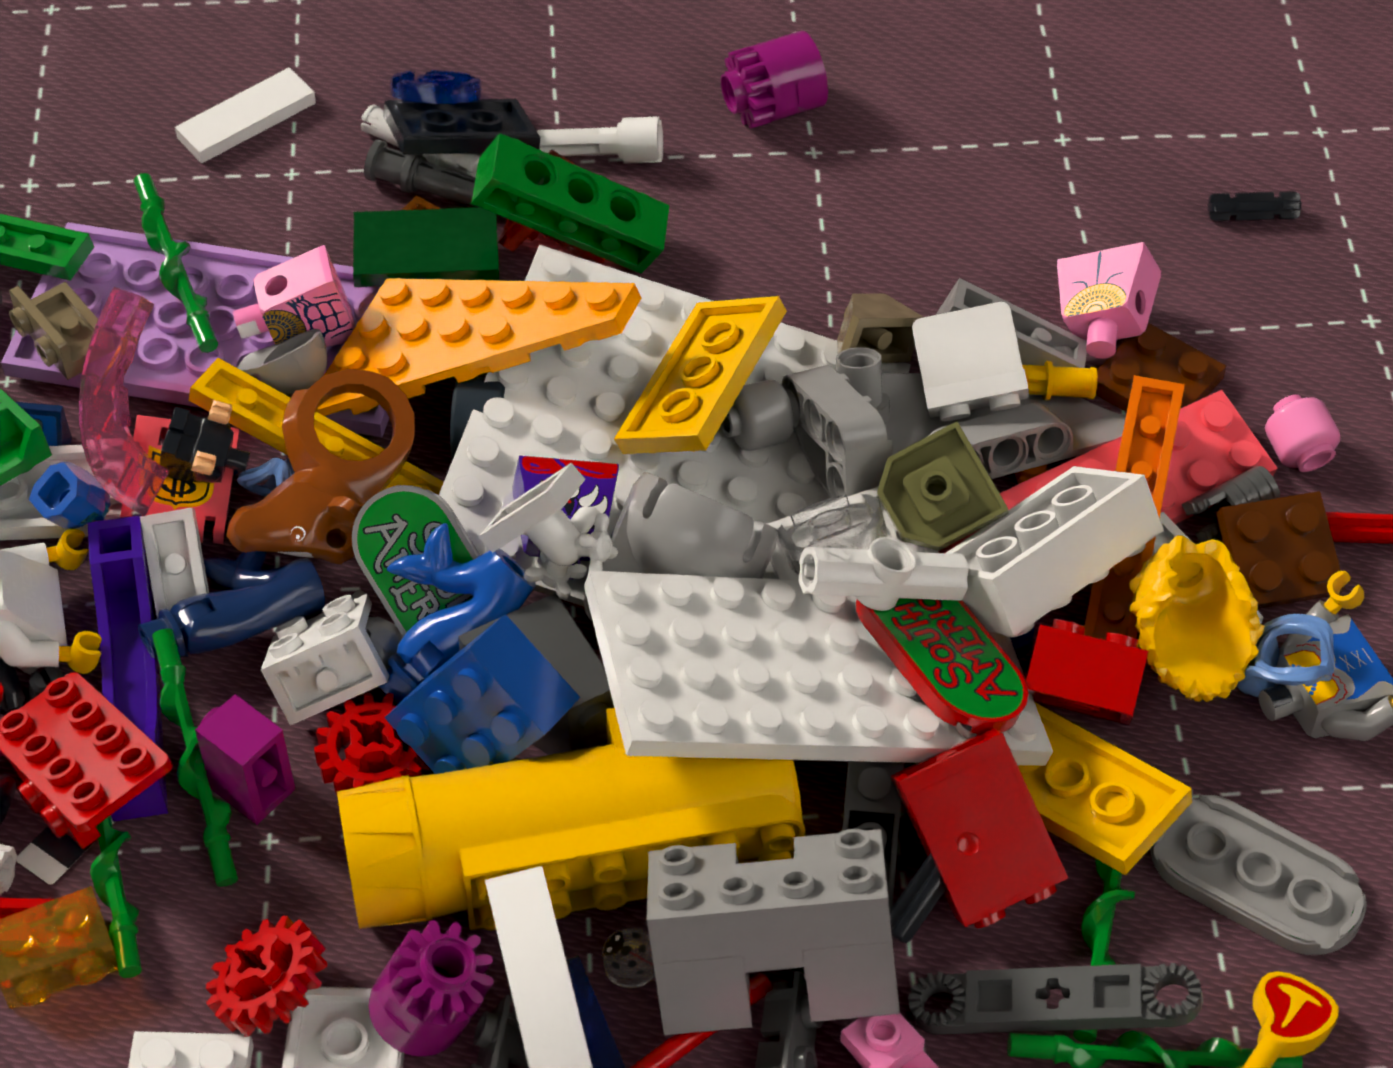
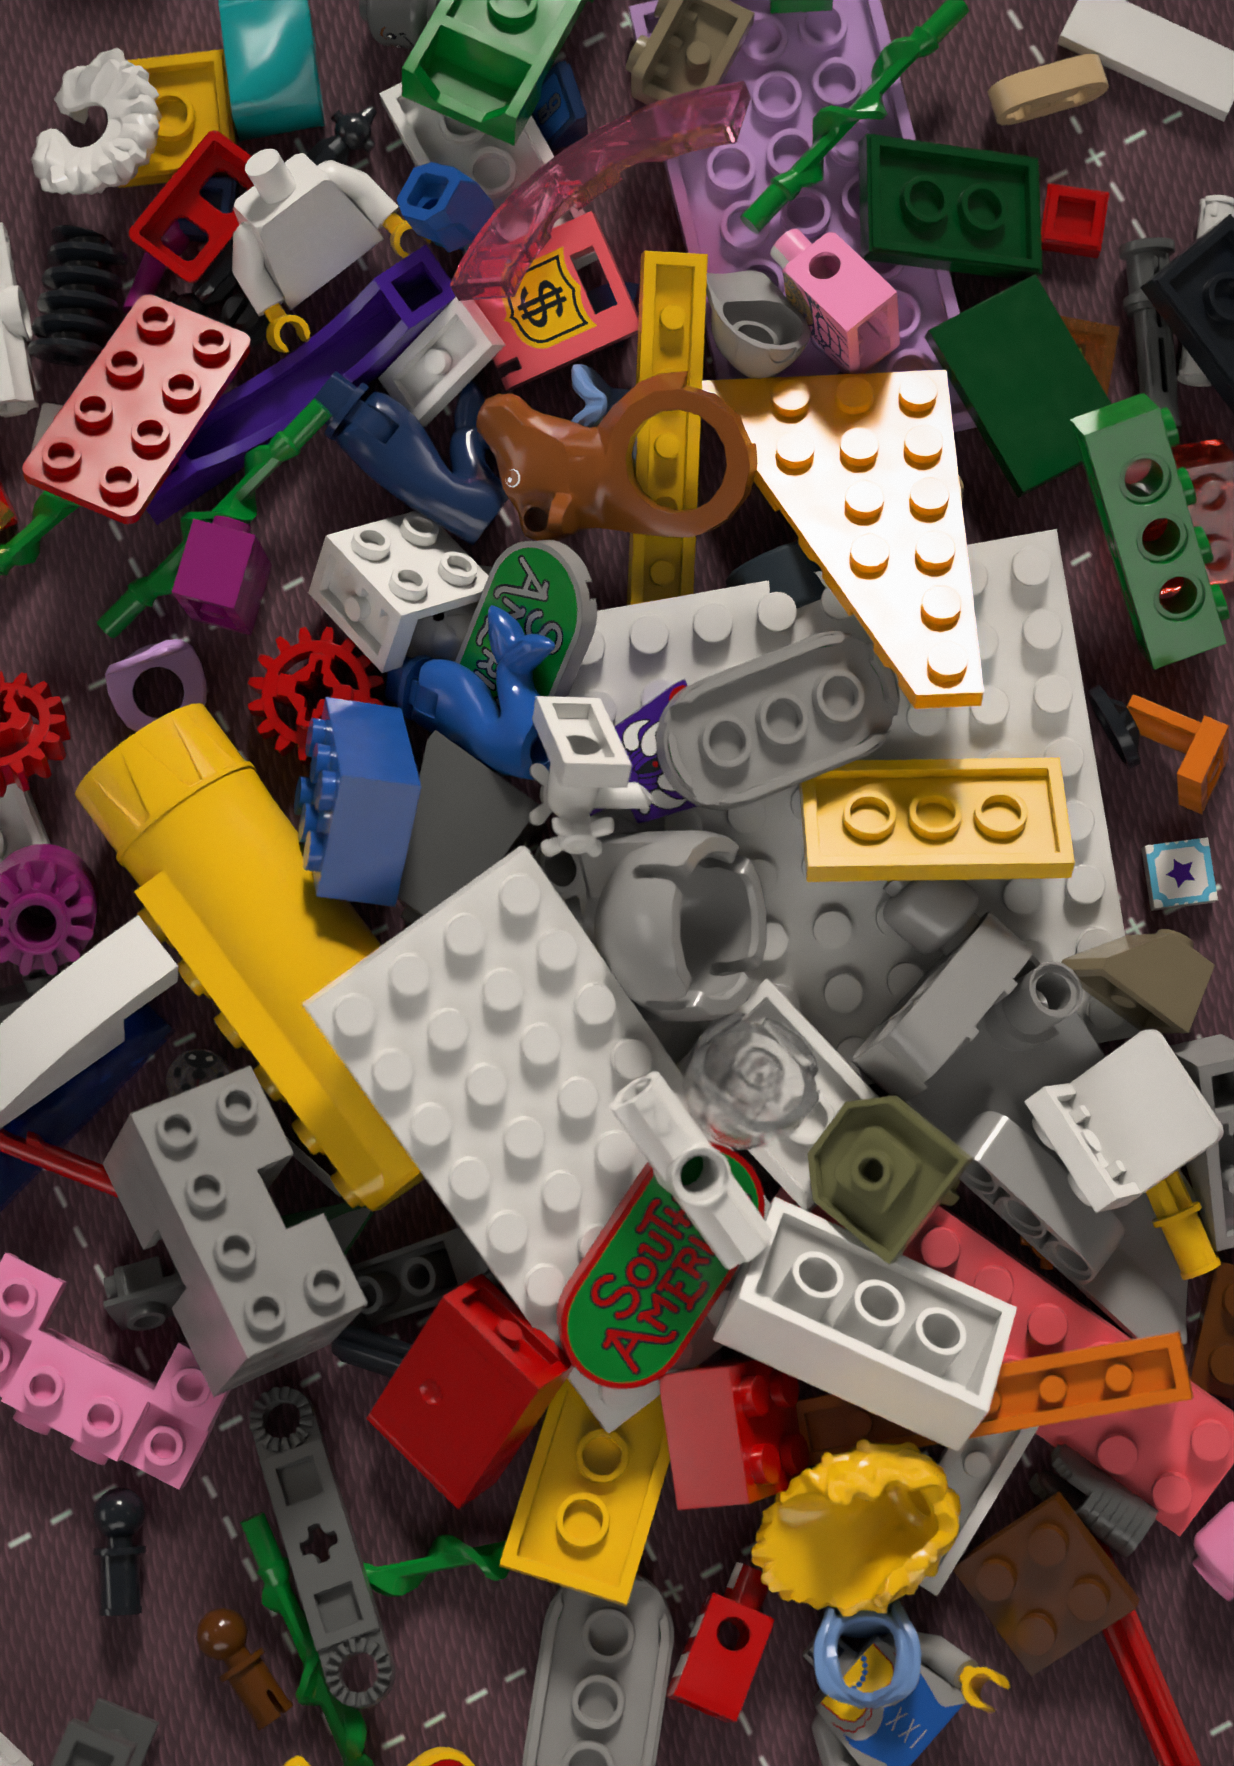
camera: 70 degrees right, 30 degrees up
(201, 447) = (571, 311): black piece -> none
(231, 170) = (1048, 89): none -> tan beam
(272, 235) = (949, 208): none -> dark green tile
(276, 881) = (169, 654): none -> lavender piece
(327, 196) = (1073, 220): none -> red tile
(581, 419) = (776, 721): none -> light grey tile
(733, 239) = (1202, 742): none -> orange piece
(810, 303) = (1179, 874): none -> tile
(1255, 758) = (711, 1675): none -> red torso

